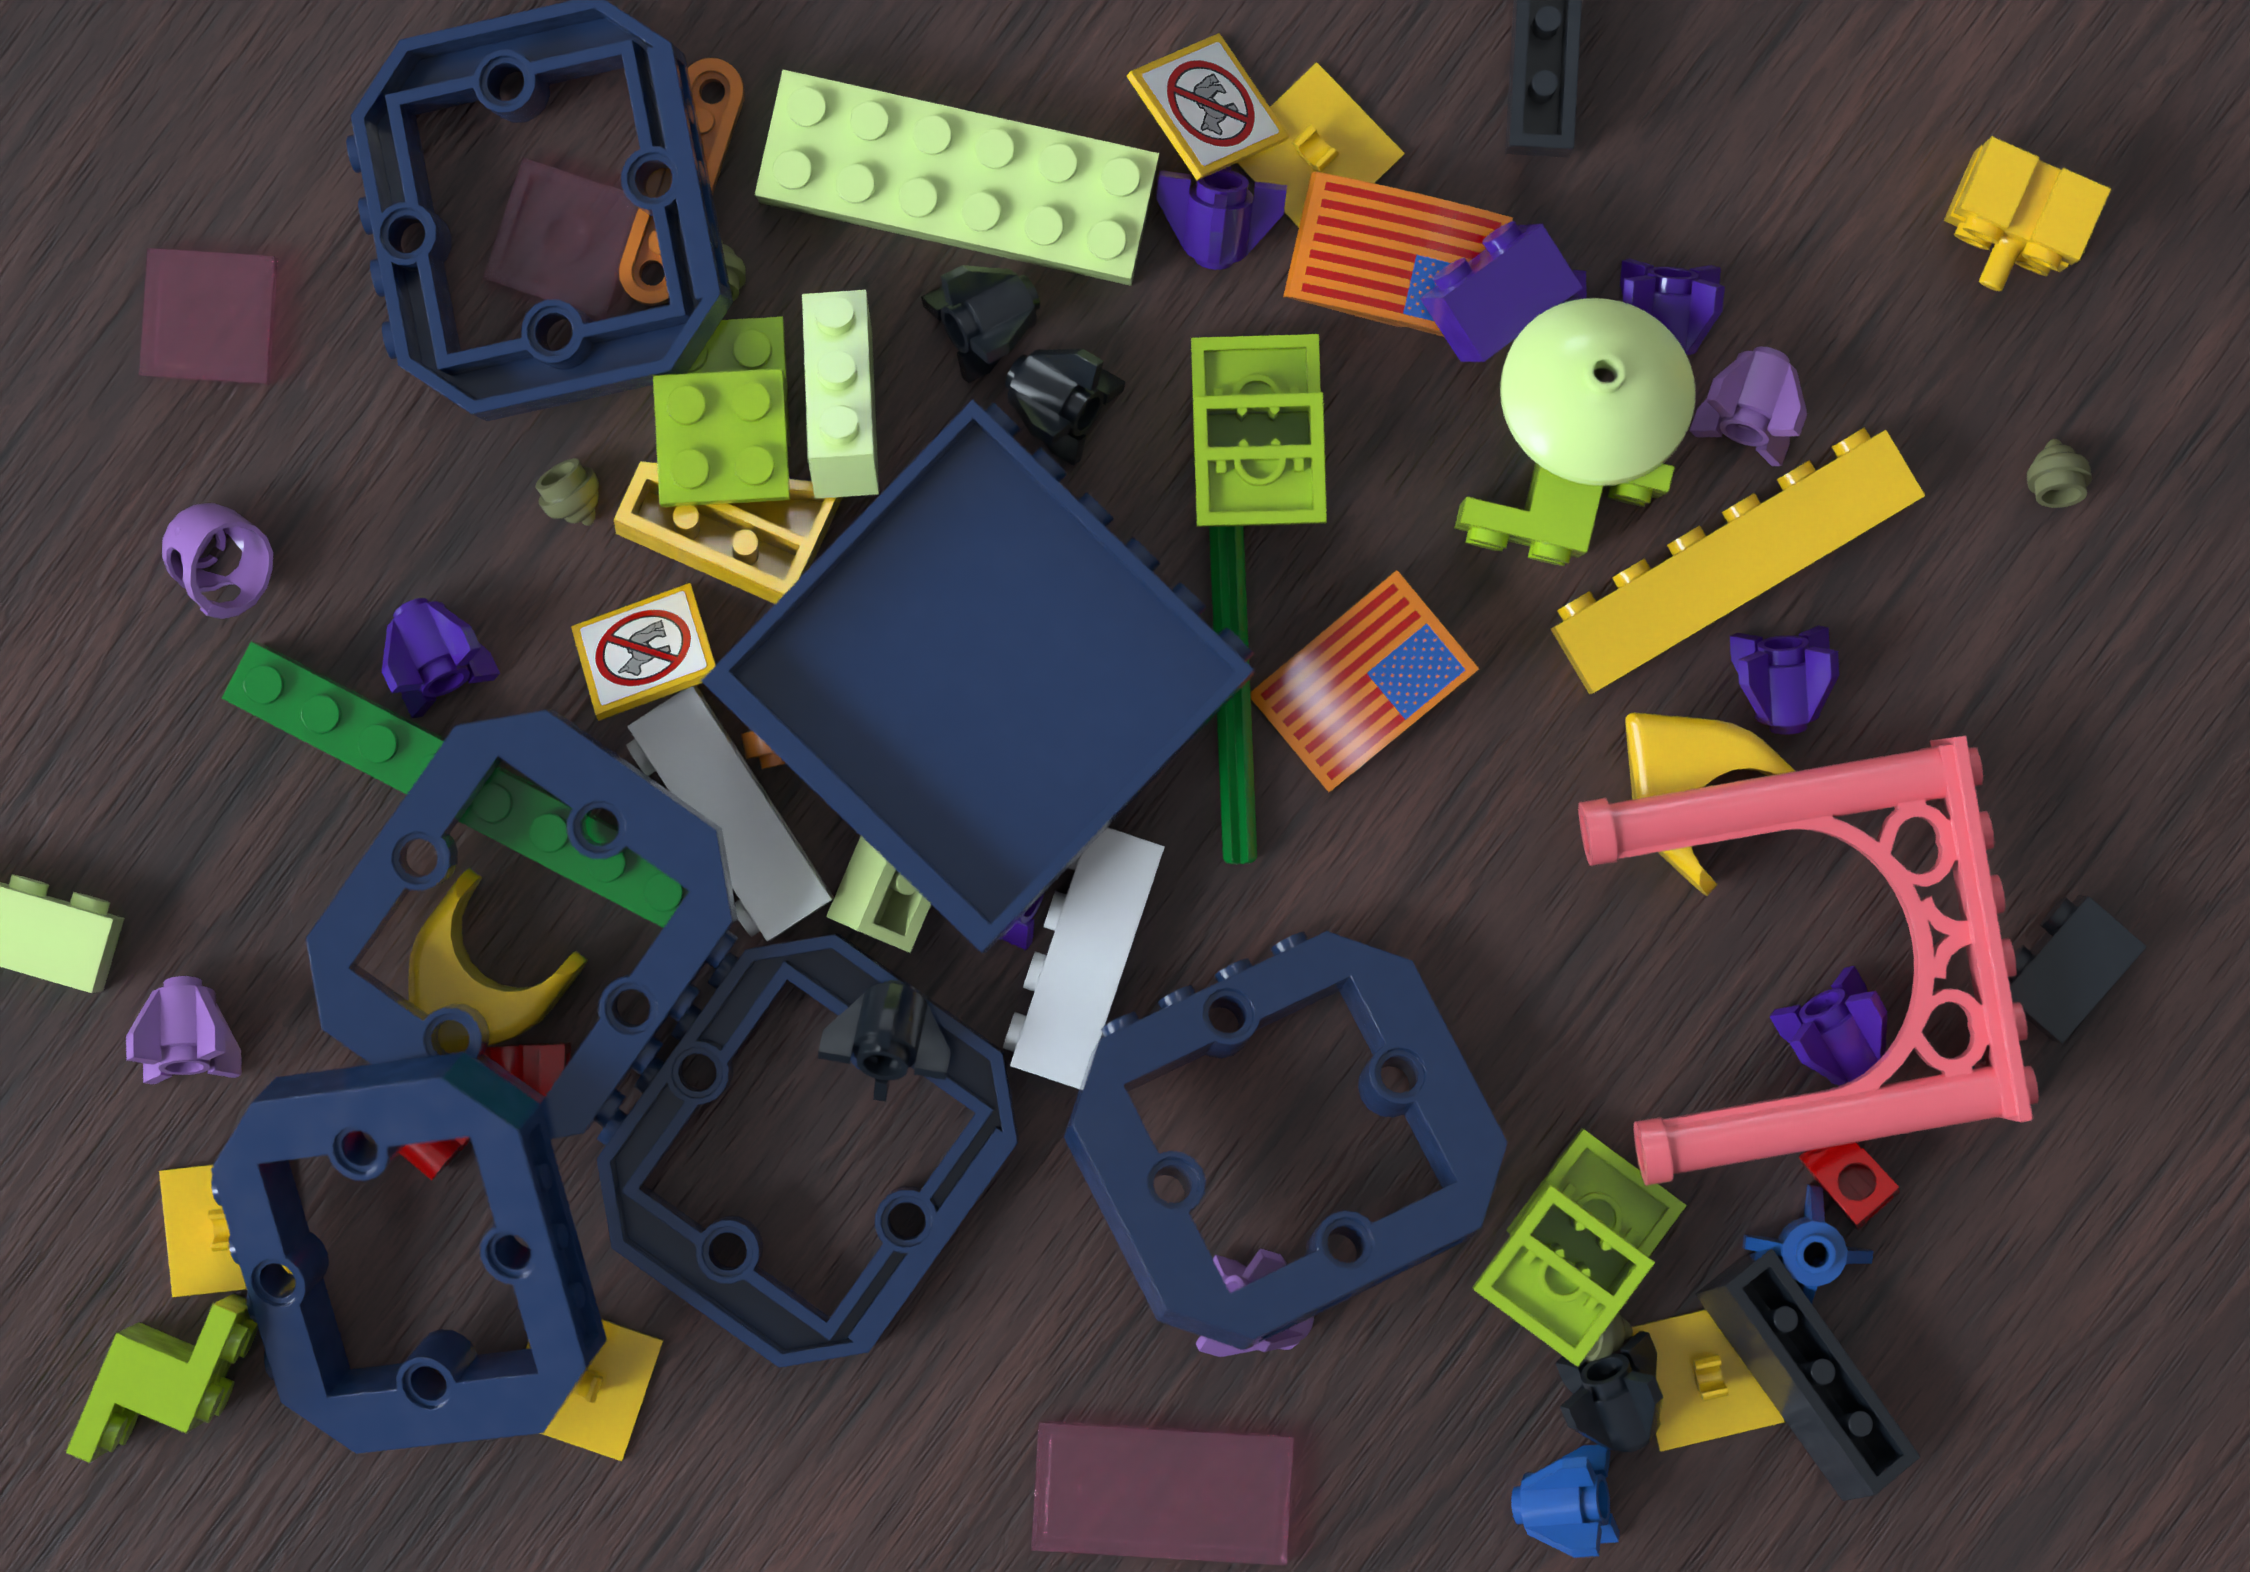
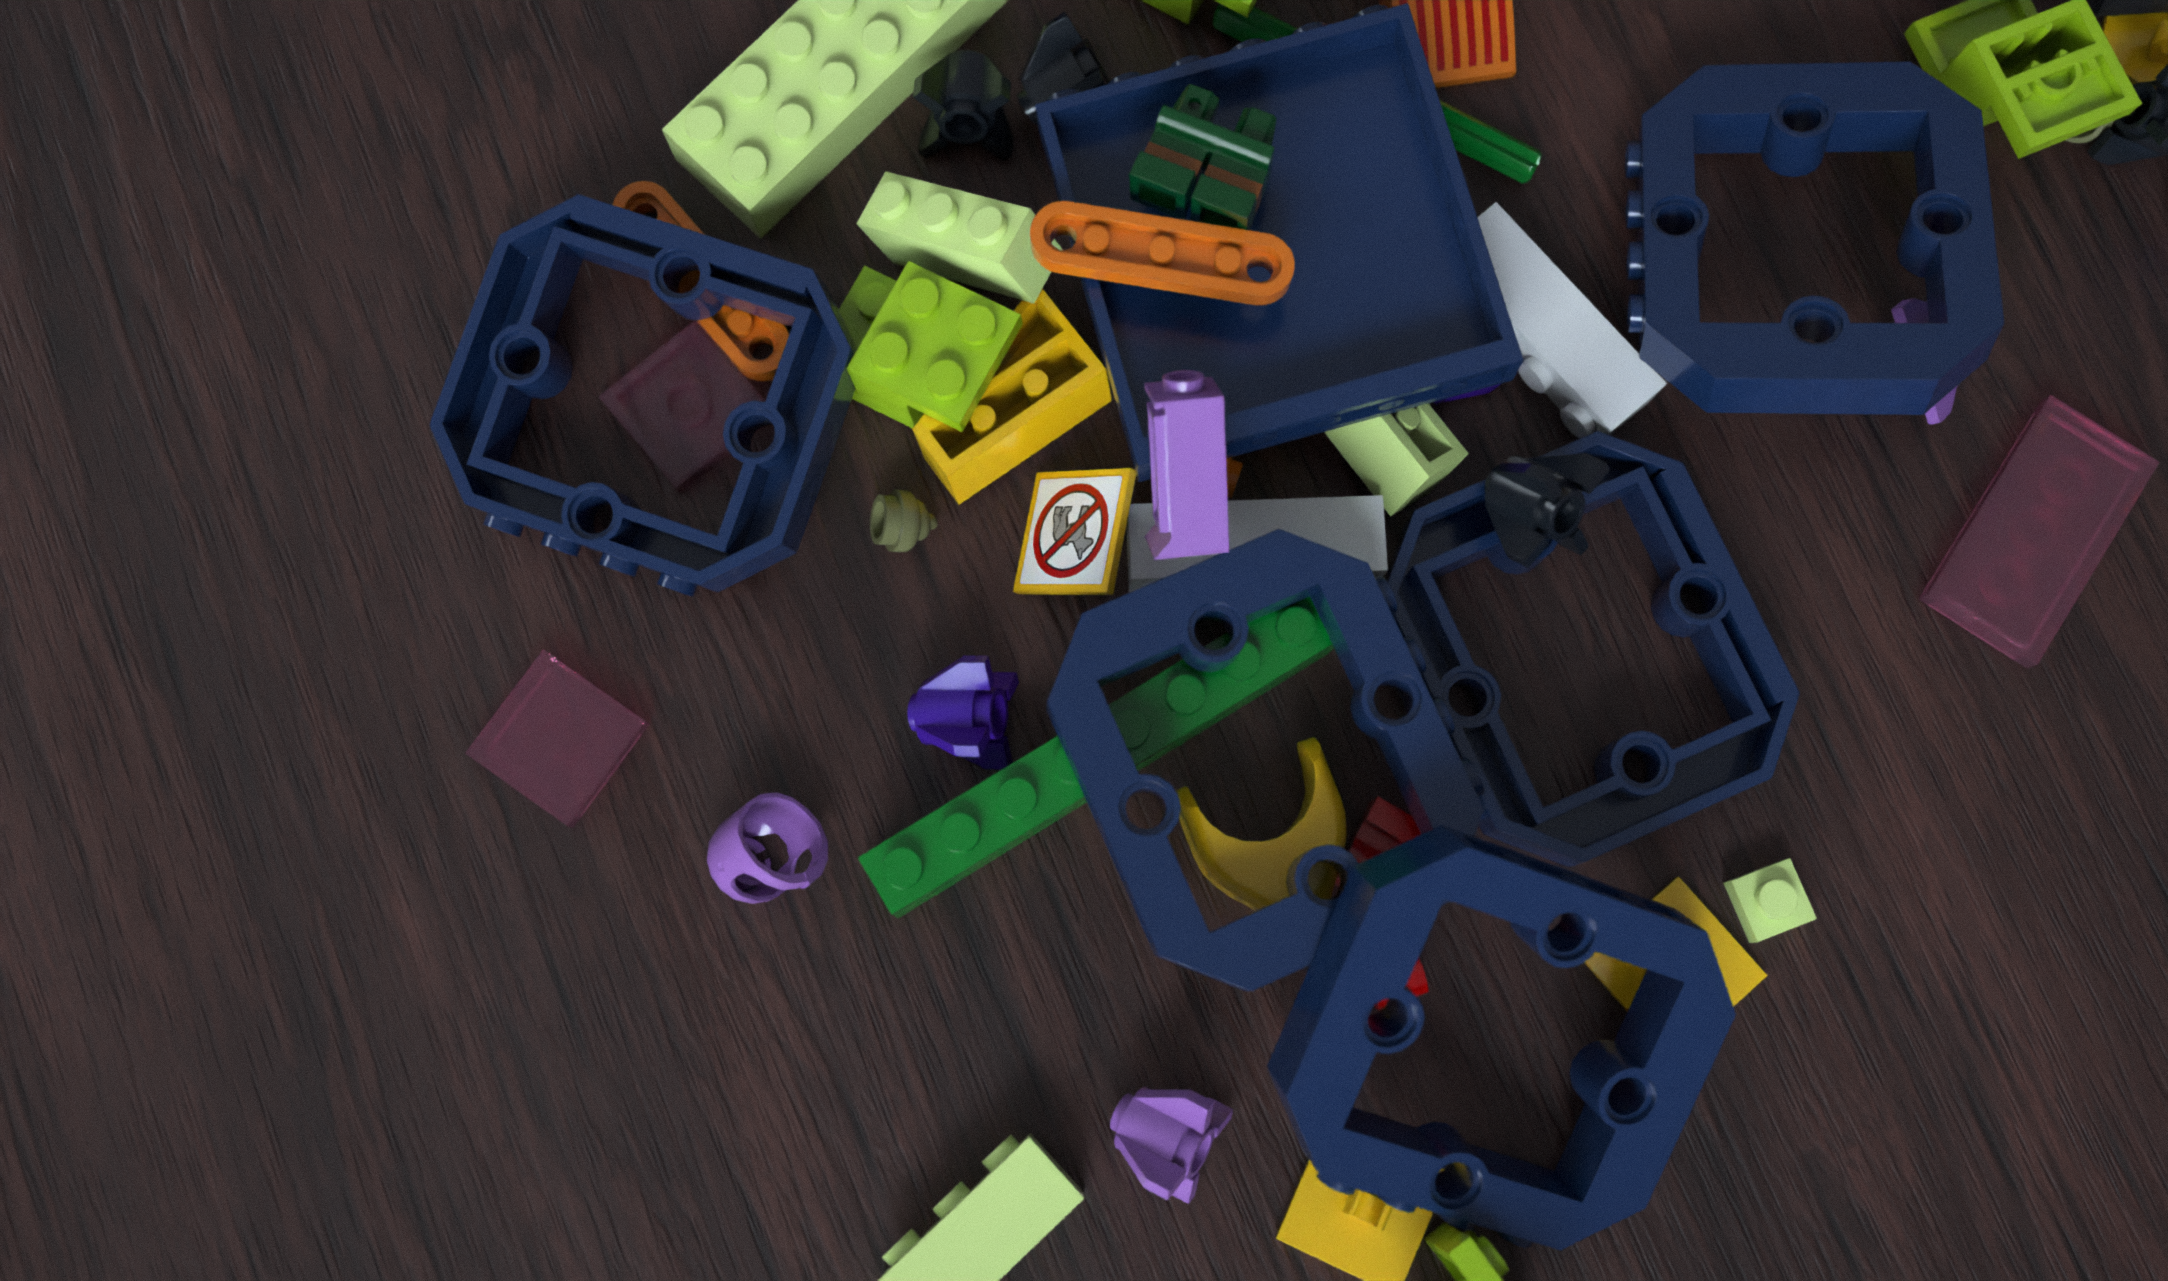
camera: 60 degrees left, 10 degrees down
(687, 1429) = (1769, 900): none -> yellowish green plate
(713, 724) = (1187, 466): none -> medium lavender window
(890, 592) = (1161, 252): none -> orange plate
(988, 557) = (1205, 164): none -> dark green hips

